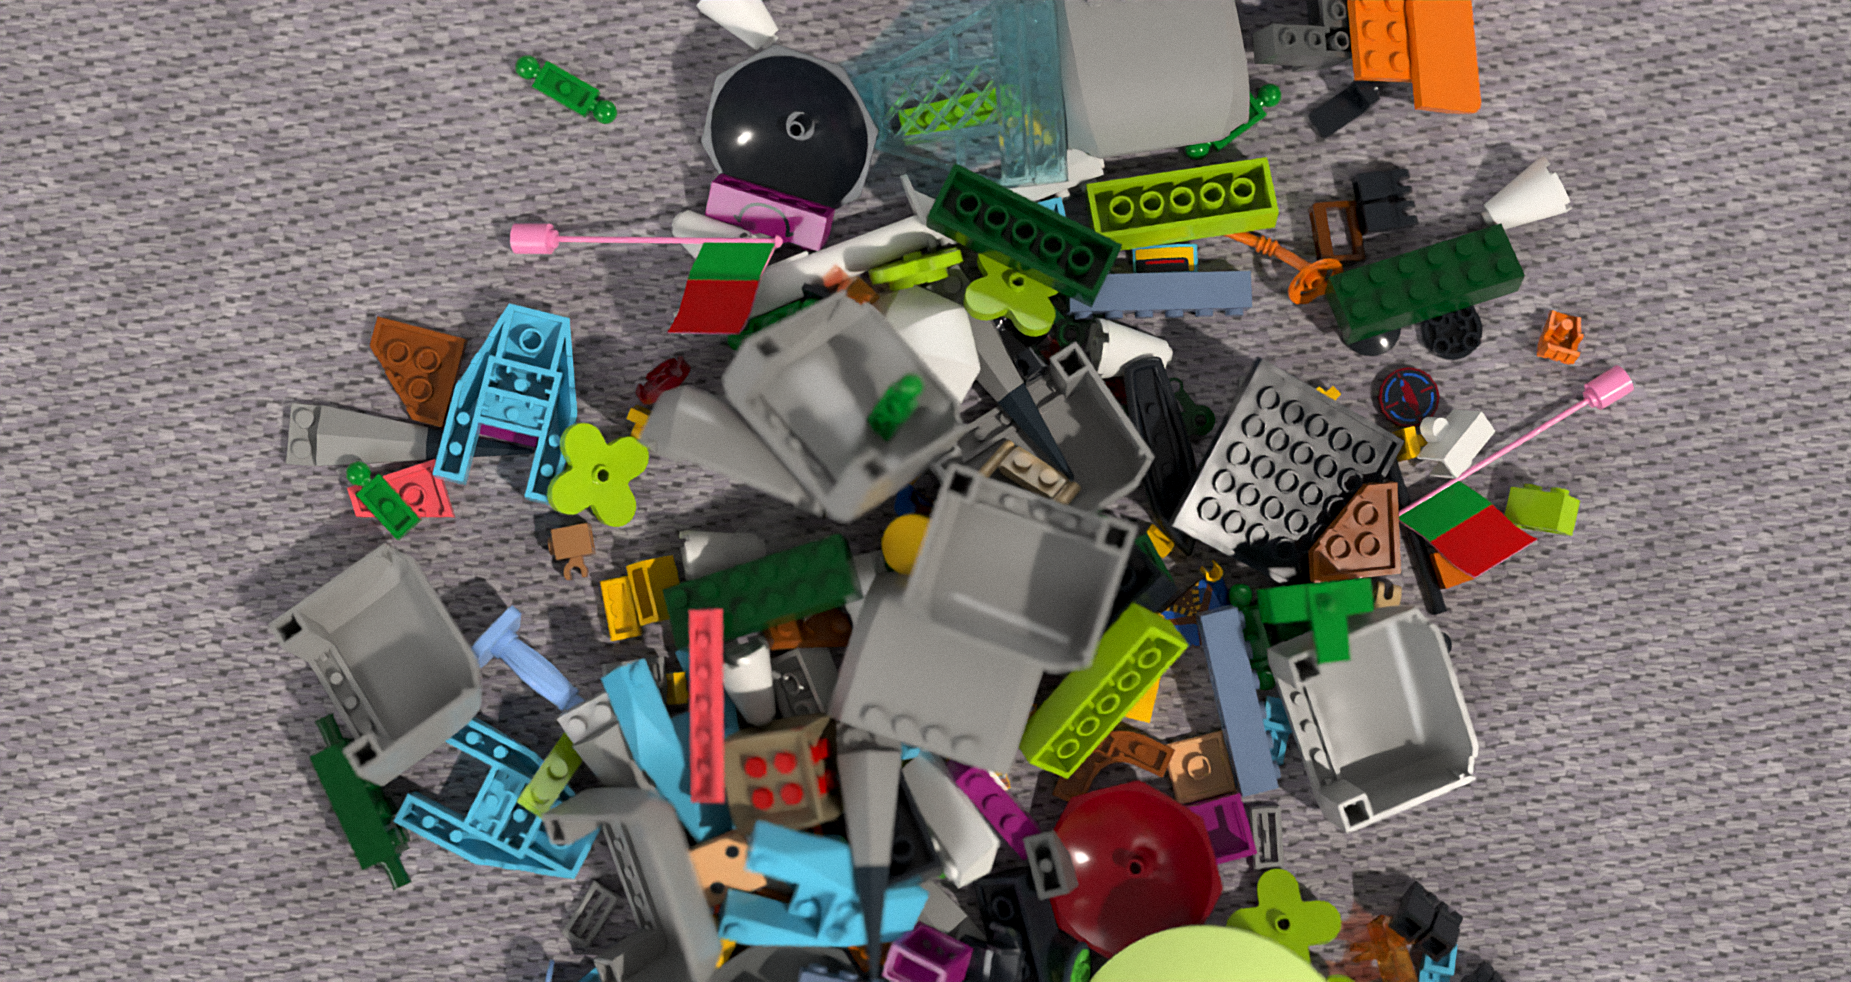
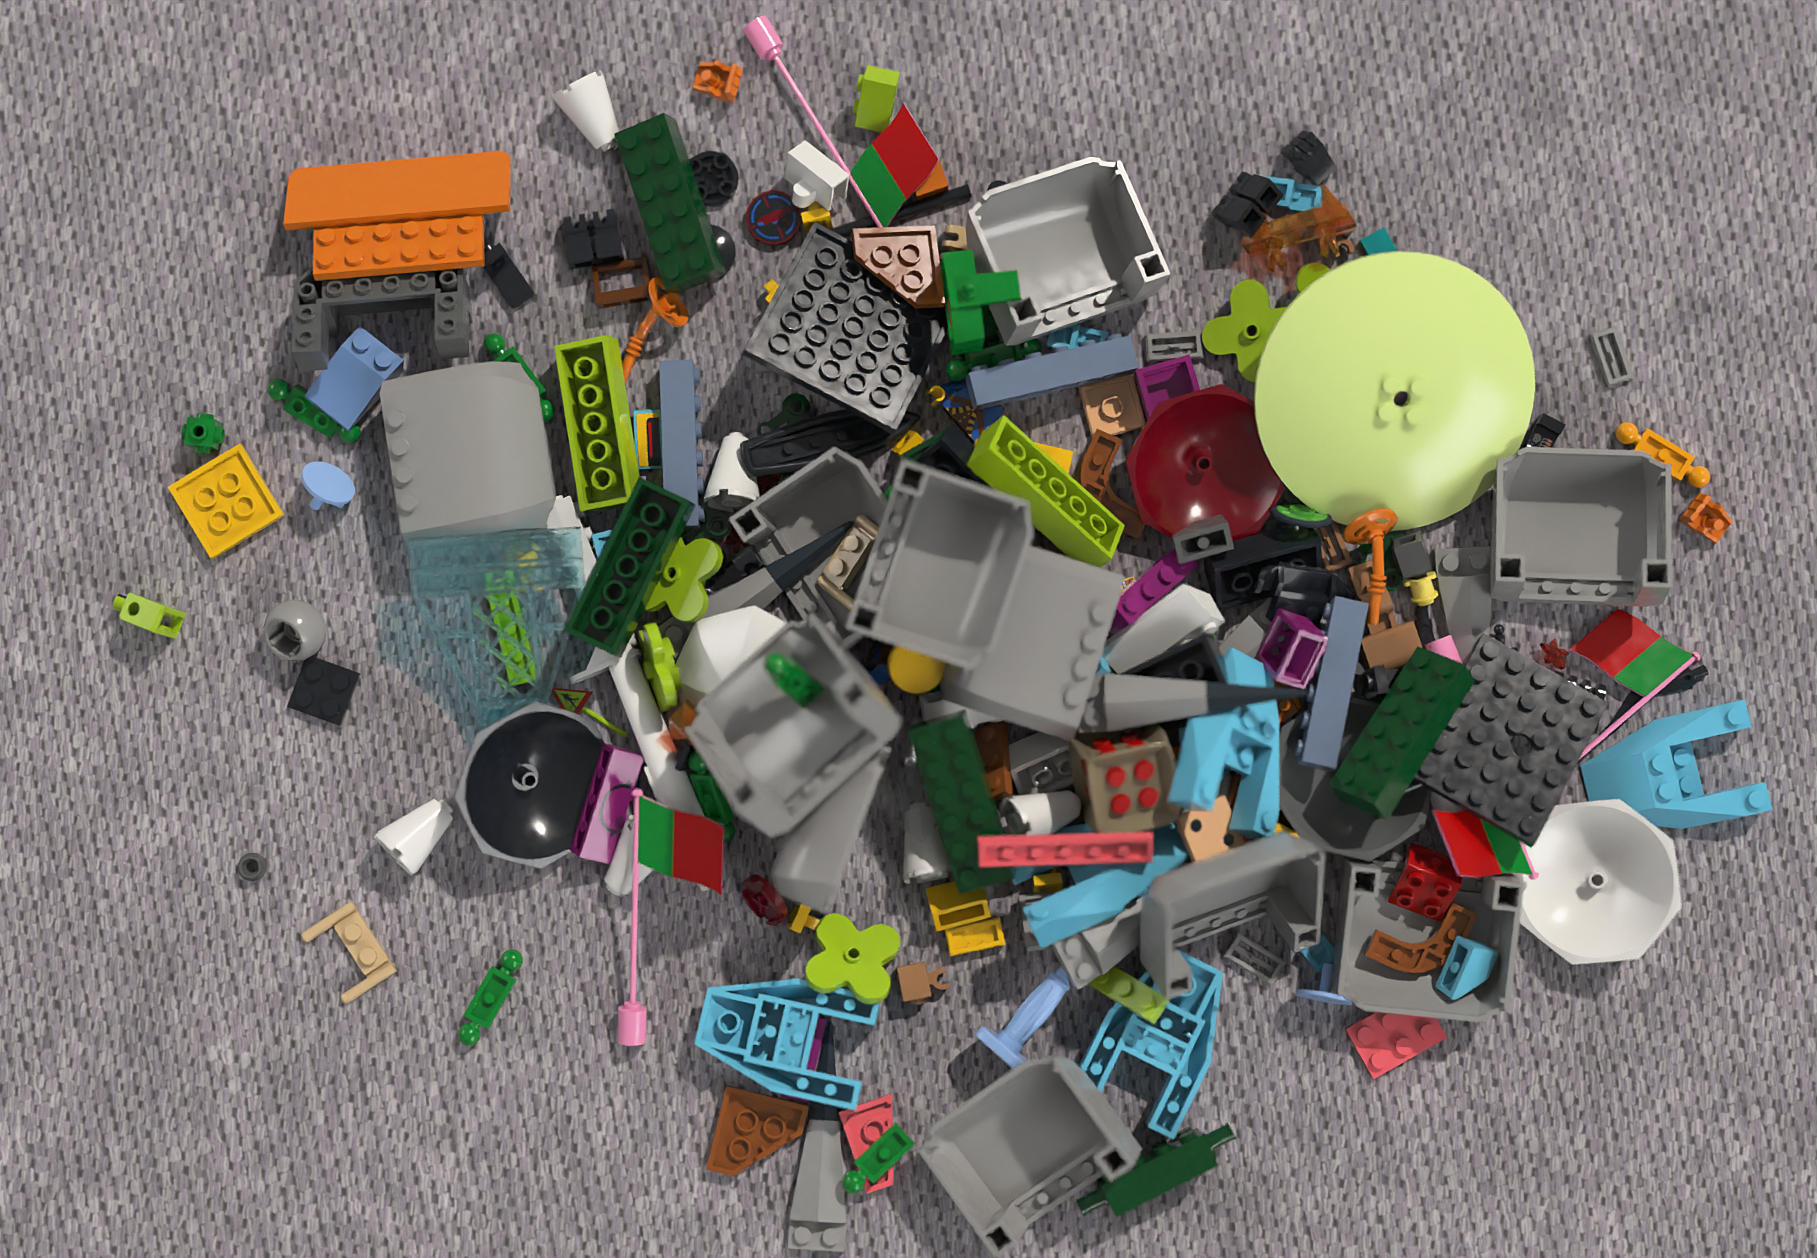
camera: 90 degrees left, 0 degrees up
(881, 179) = (575, 702): none -> piece

